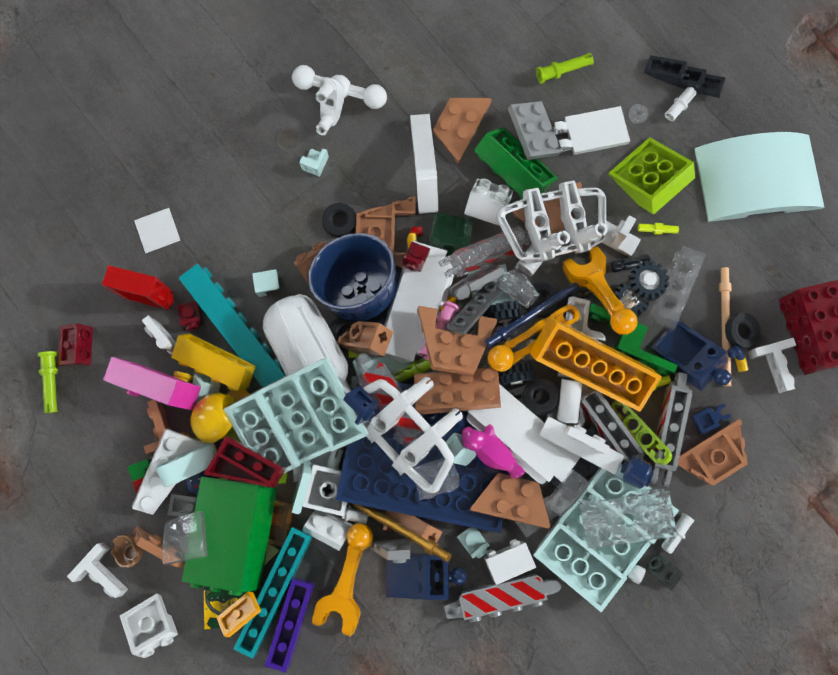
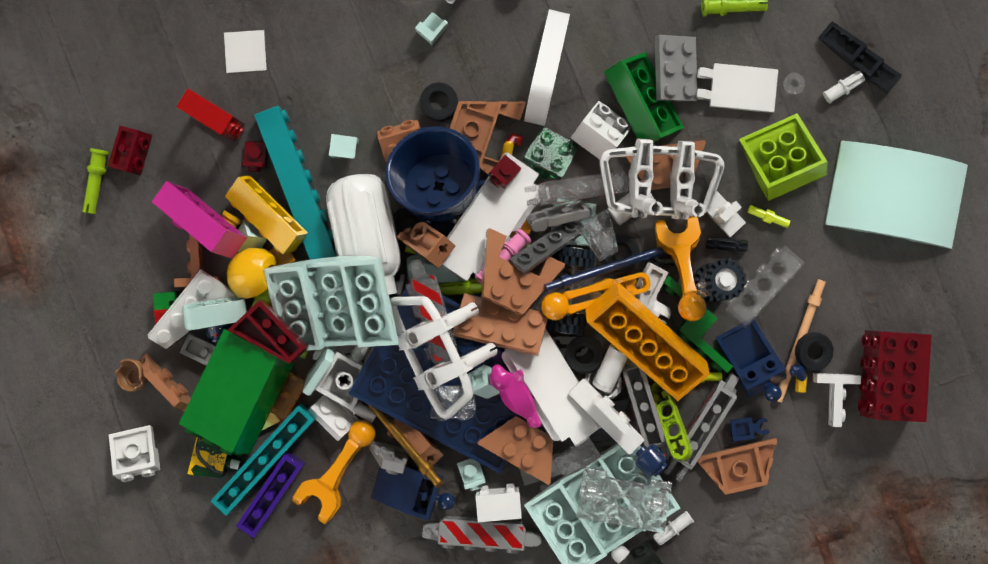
camera: 10 degrees right, 10 degrees up
(98, 572) = (98, 387): white bracket -> none
(162, 337) = (217, 162): white plate -> none
(184, 539) = (192, 385): clear plate -> none
(238, 614) = (224, 471): light orange plate -> none
(362, 404) = (400, 314): dark blue bracket -> none
(459, 123) = (599, 33): nougat wing -> none

